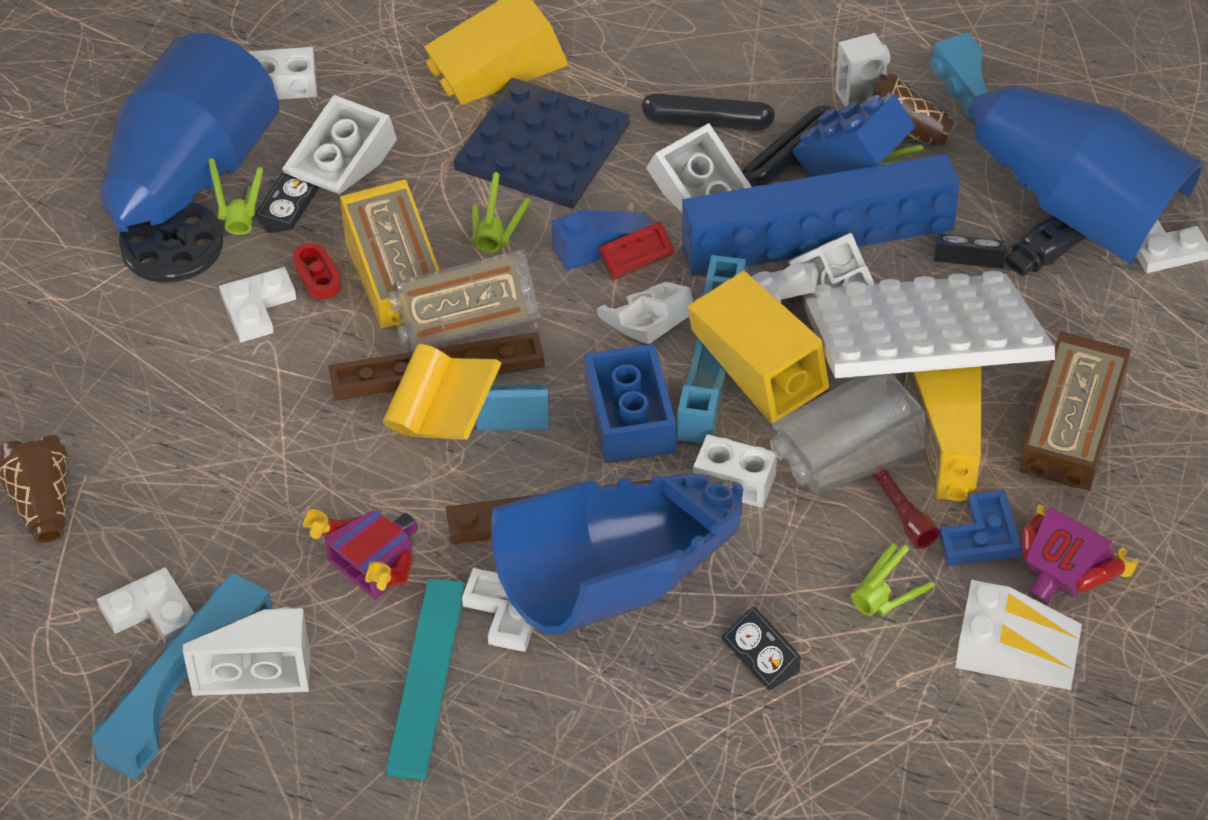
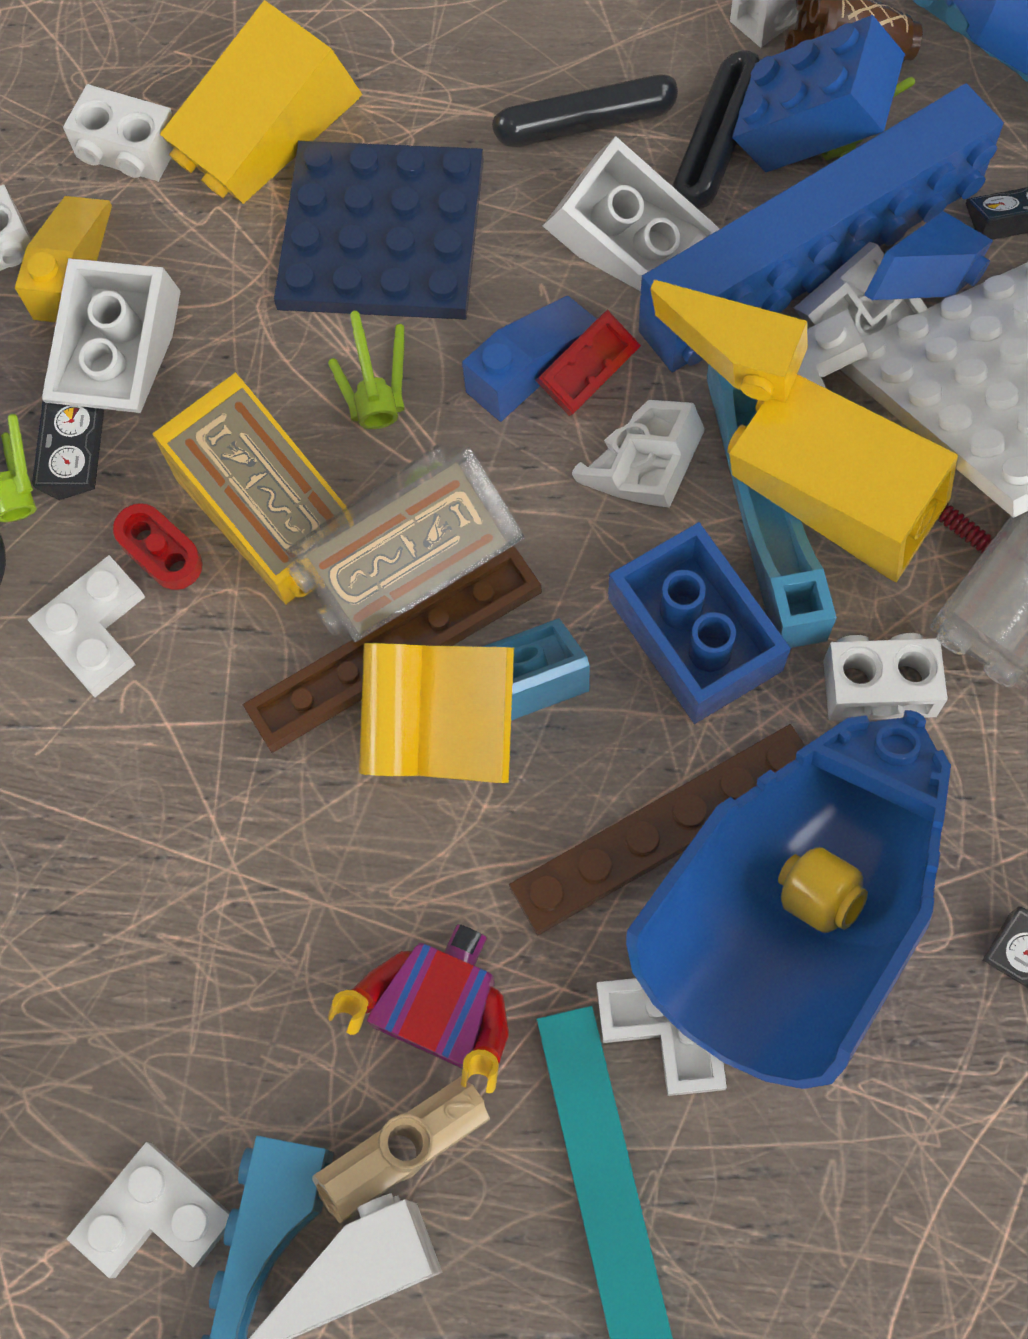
camera: 15 degrees left, 20 degrees up
(322, 605) = (373, 1170): none -> tan piece
(344, 84) = (71, 232): none -> yellow slope
(399, 41) = (119, 132): none -> white brick
(629, 550) = (822, 890): none -> yellow head
(722, 246) = (742, 342): none -> yellow slope
(879, 251) = (931, 262): none -> blue slope

